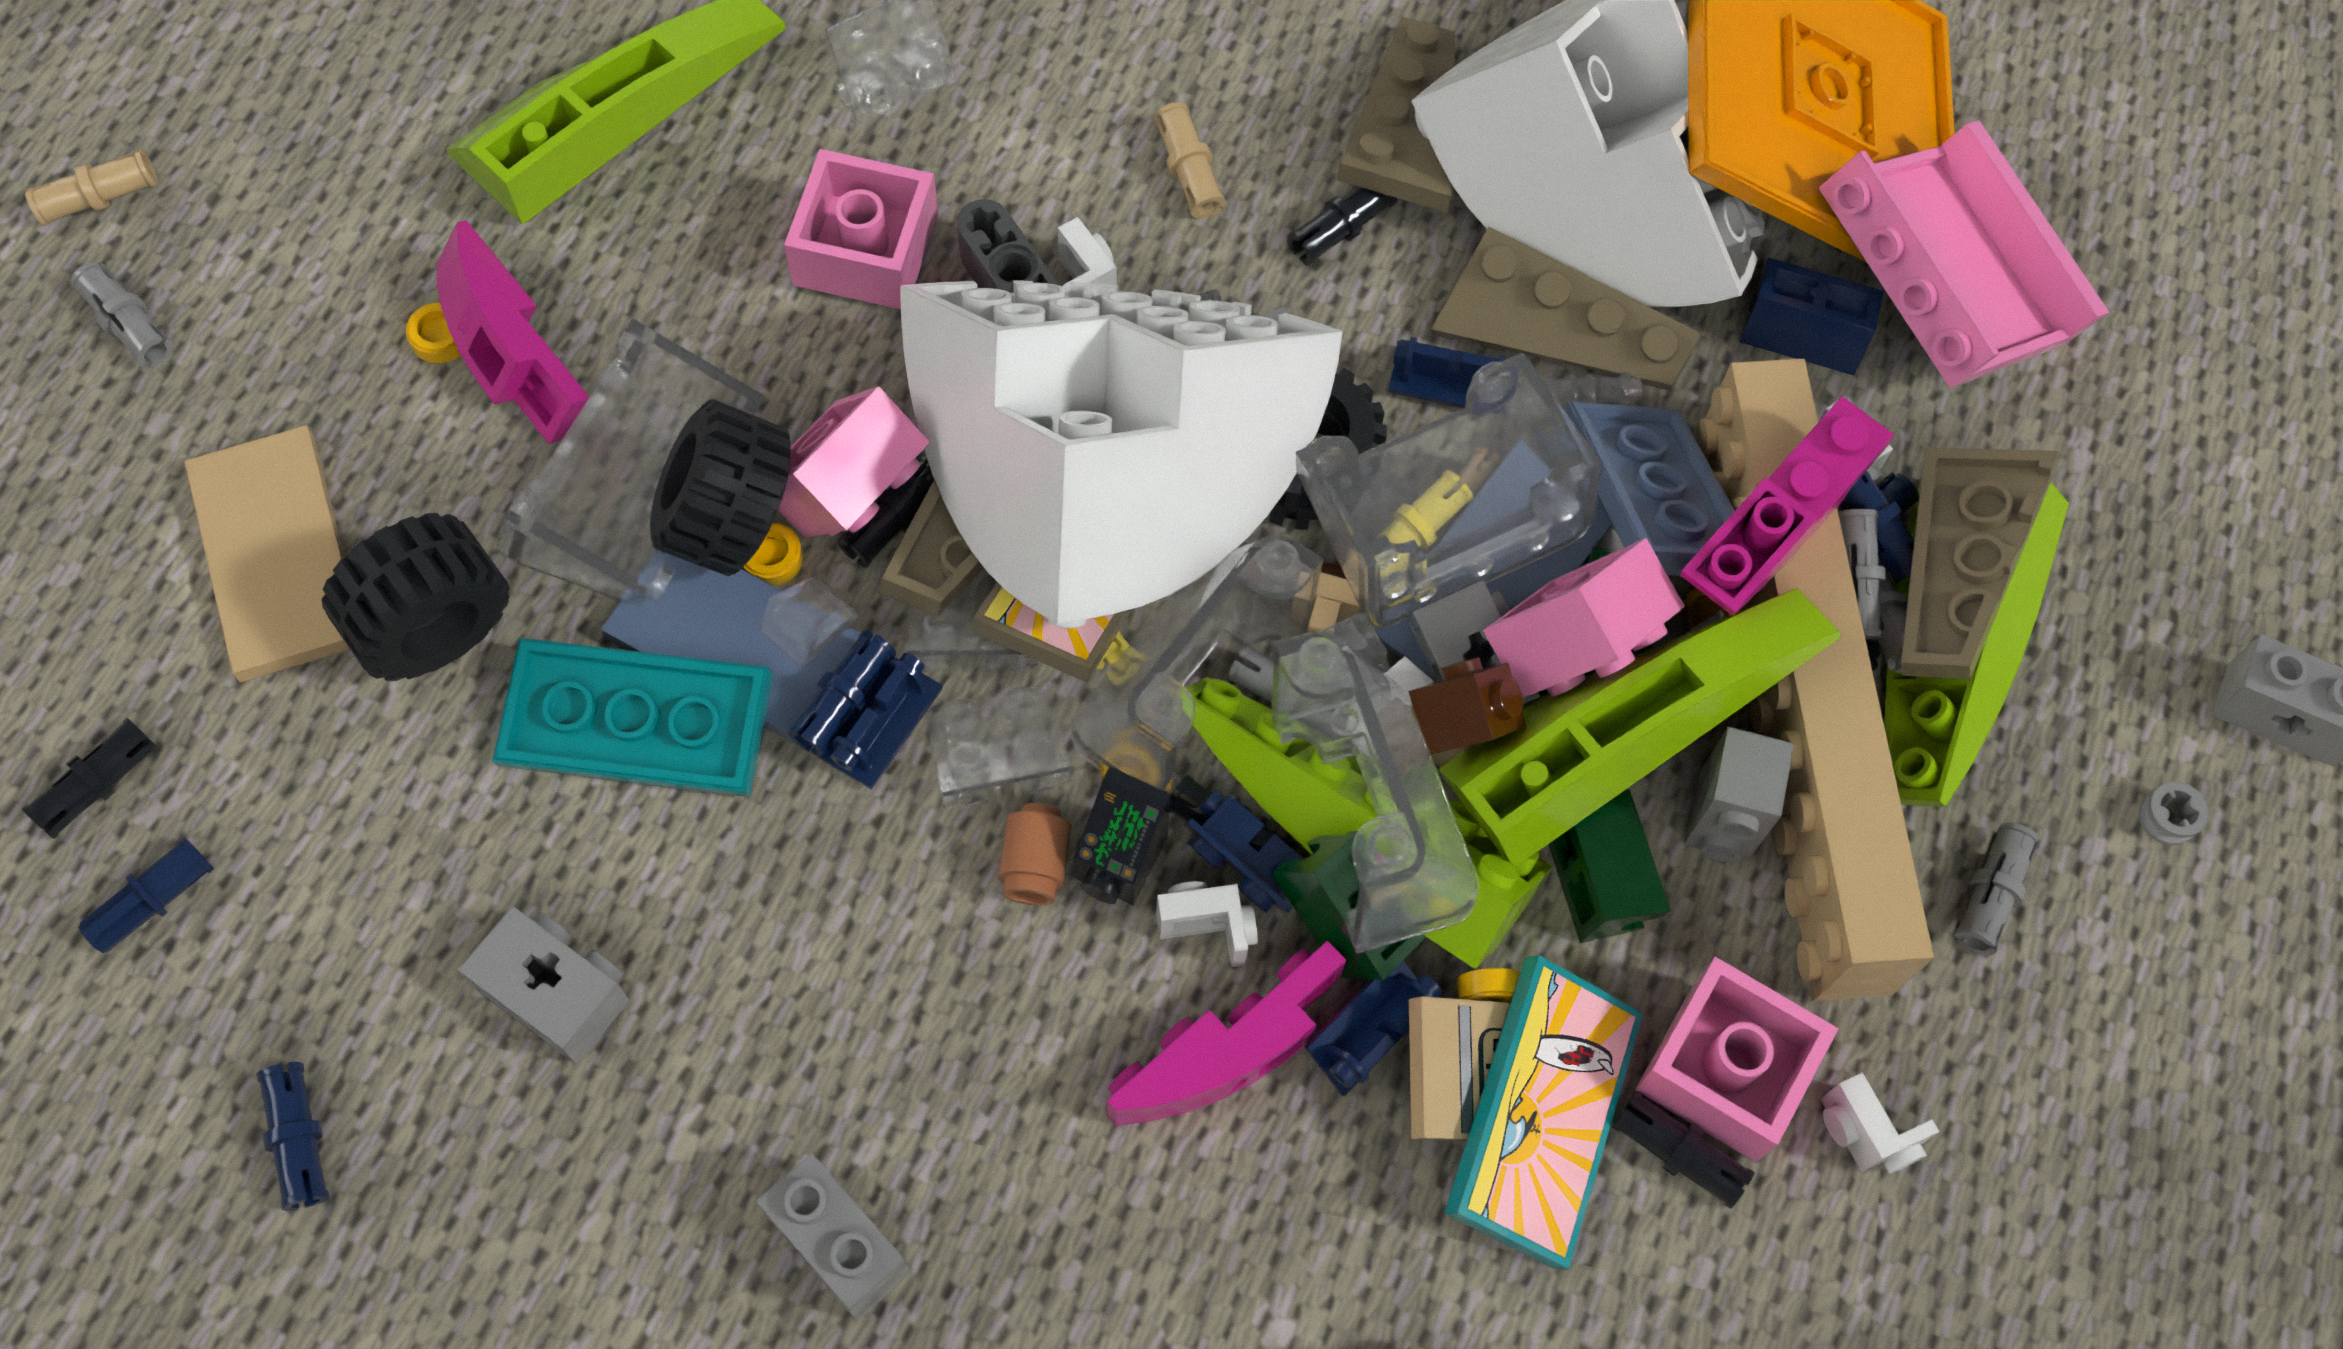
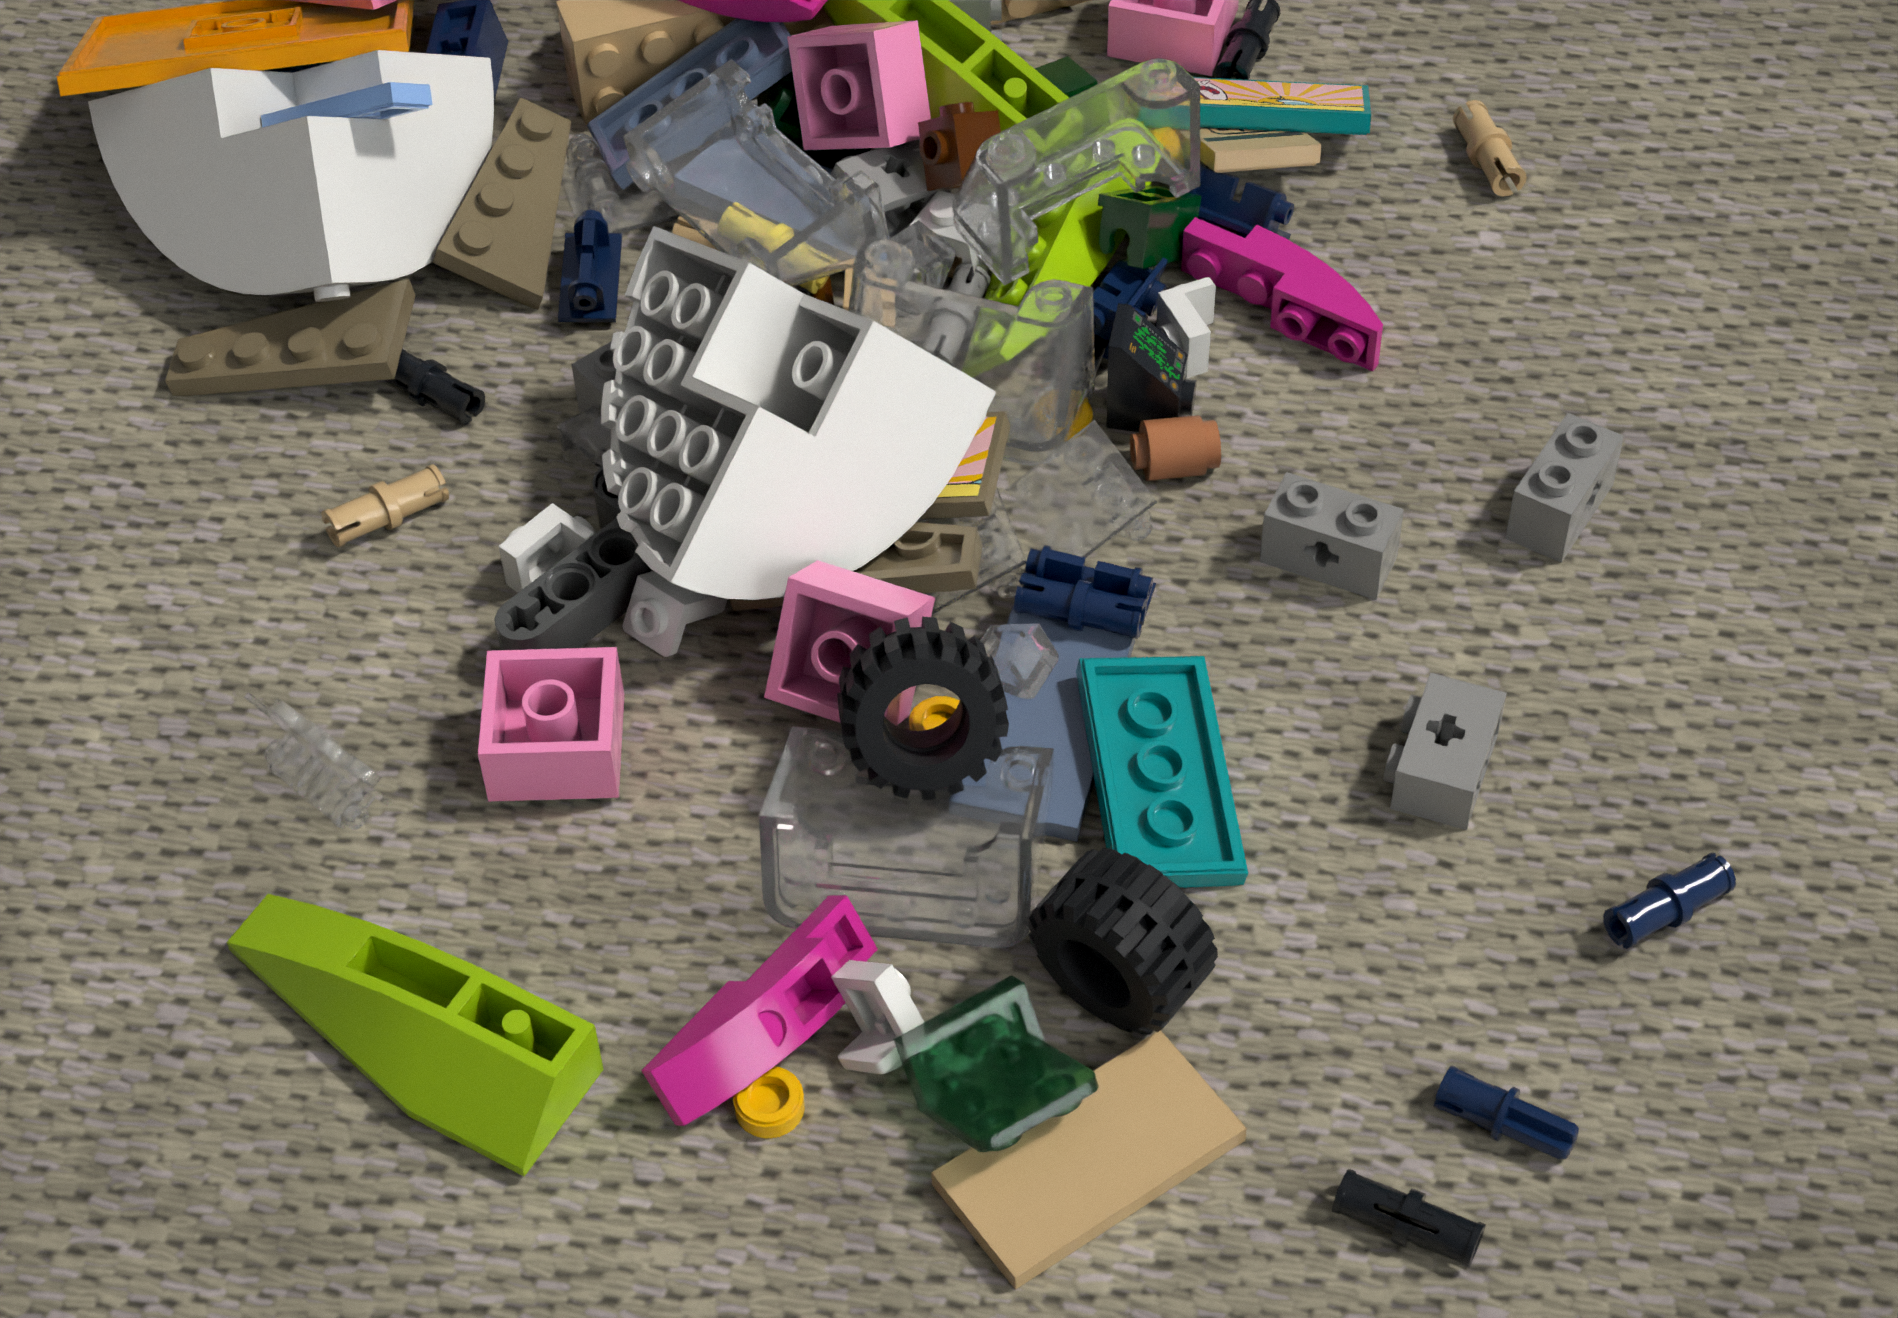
camera: 100 degrees left, 15 degrees down
(349, 485) = (990, 1070): none -> clear green bracket
(458, 411) = (882, 1009): none -> white bracket
(852, 963) = (1331, 535): none -> light grey brick
(1612, 113) = (369, 103): none -> light blue tile

